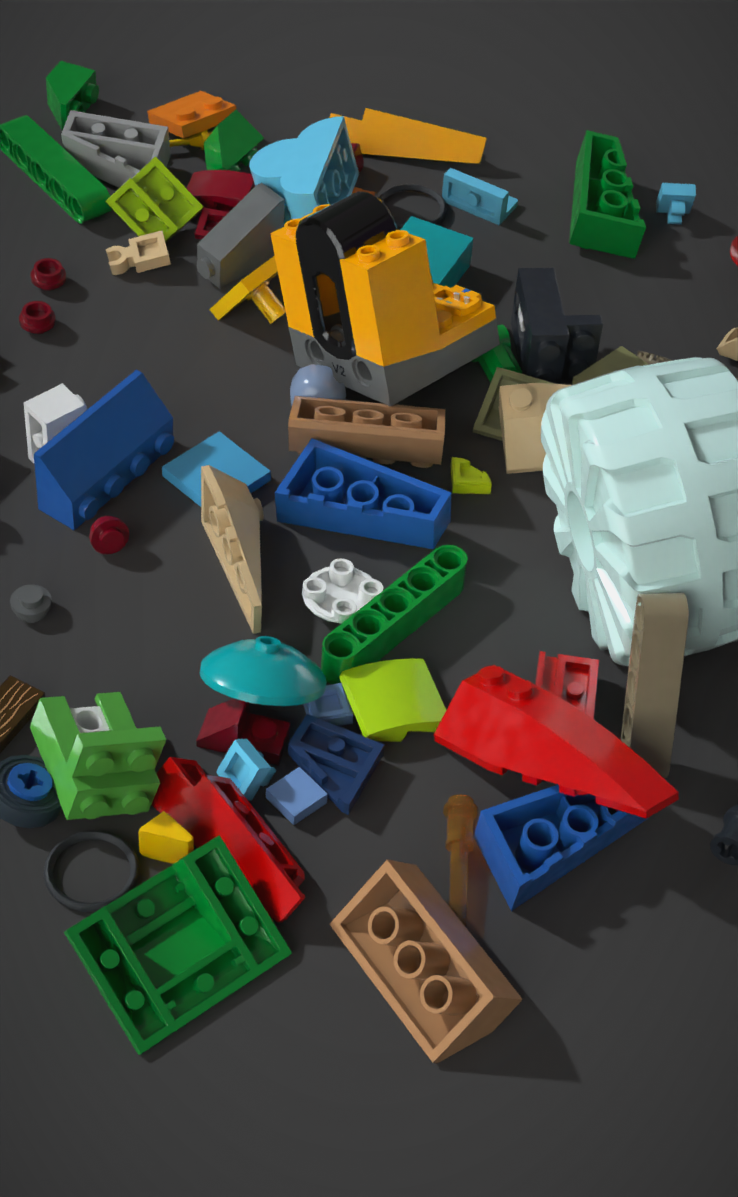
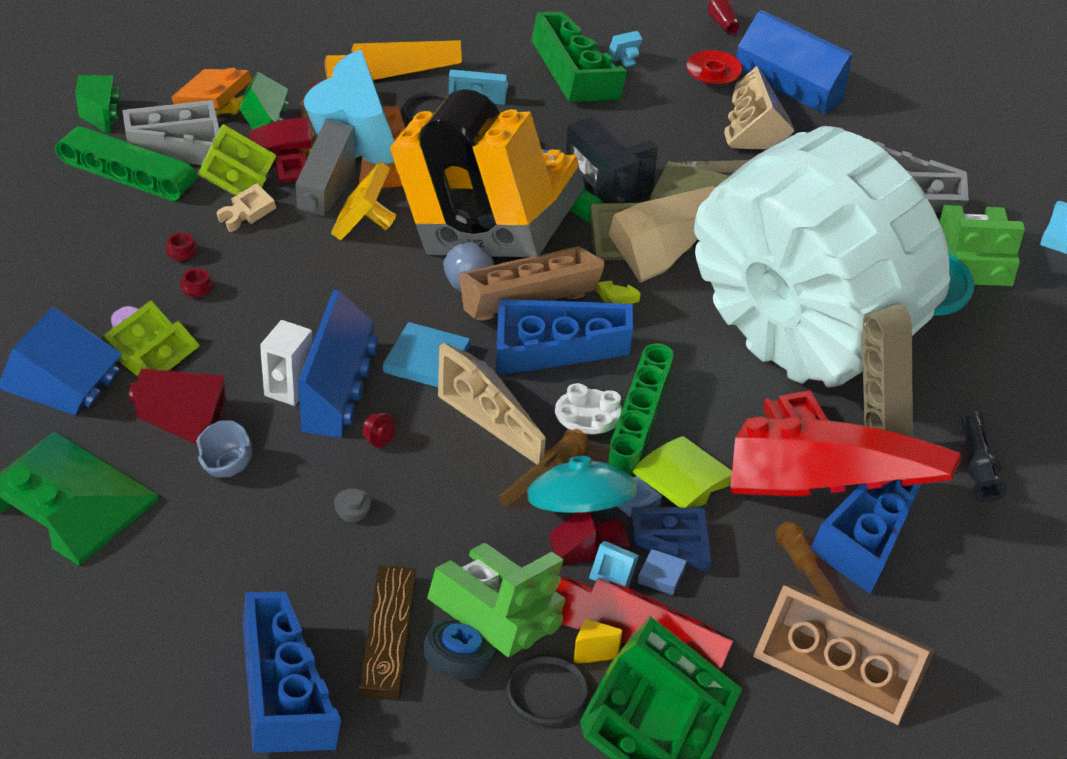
camera: 25 degrees left, 5 degrees down
(281, 627) = (572, 444): none -> clear orange pin

